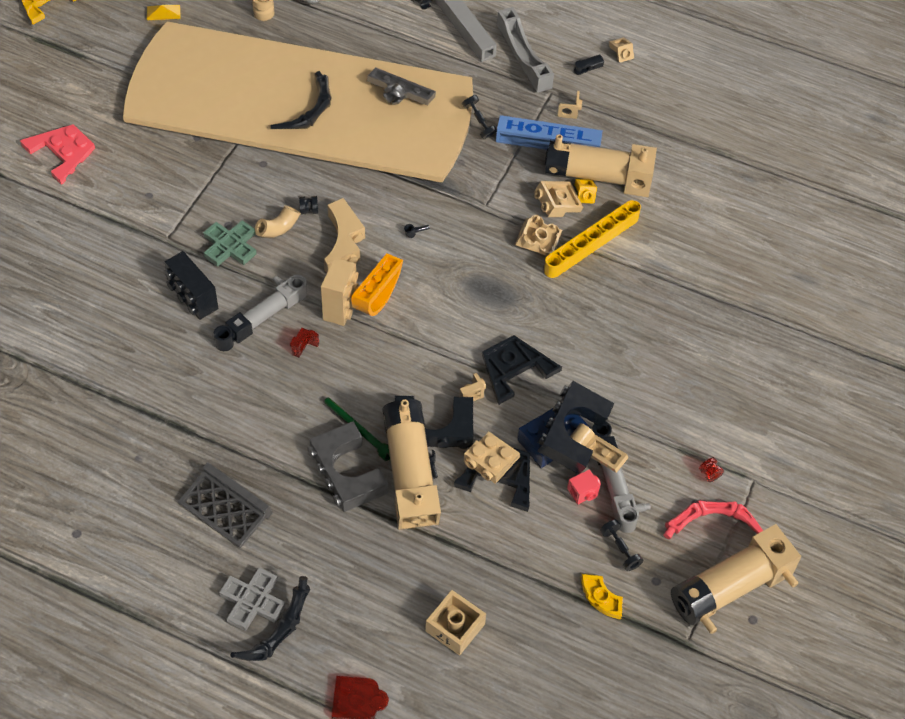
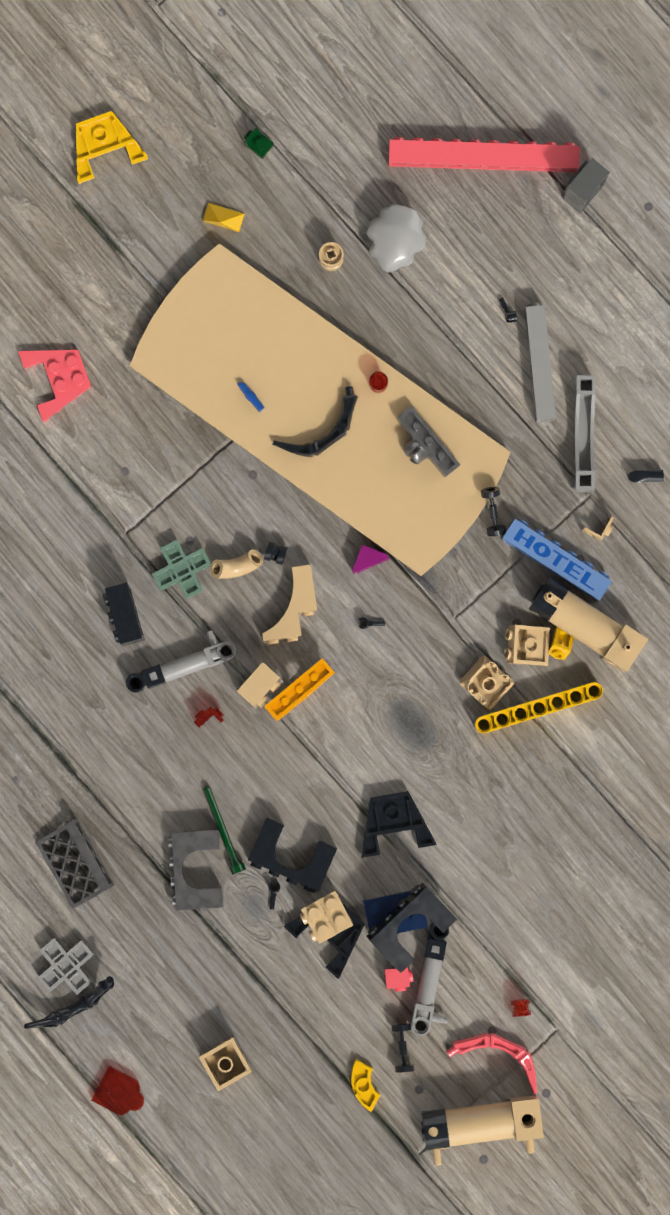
camera: 25 degrees right, 30 degrees up
(237, 104) = (250, 396): none -> blue piece
(340, 61) = (378, 378): none -> clear red wheel
(392, 183) = (368, 558): none -> magenta slope
(415, 494) = (248, 902): tan piece -> none
(475, 389) = (340, 836): tan bracket -> none
(602, 450) = (422, 952): tan plate -> none

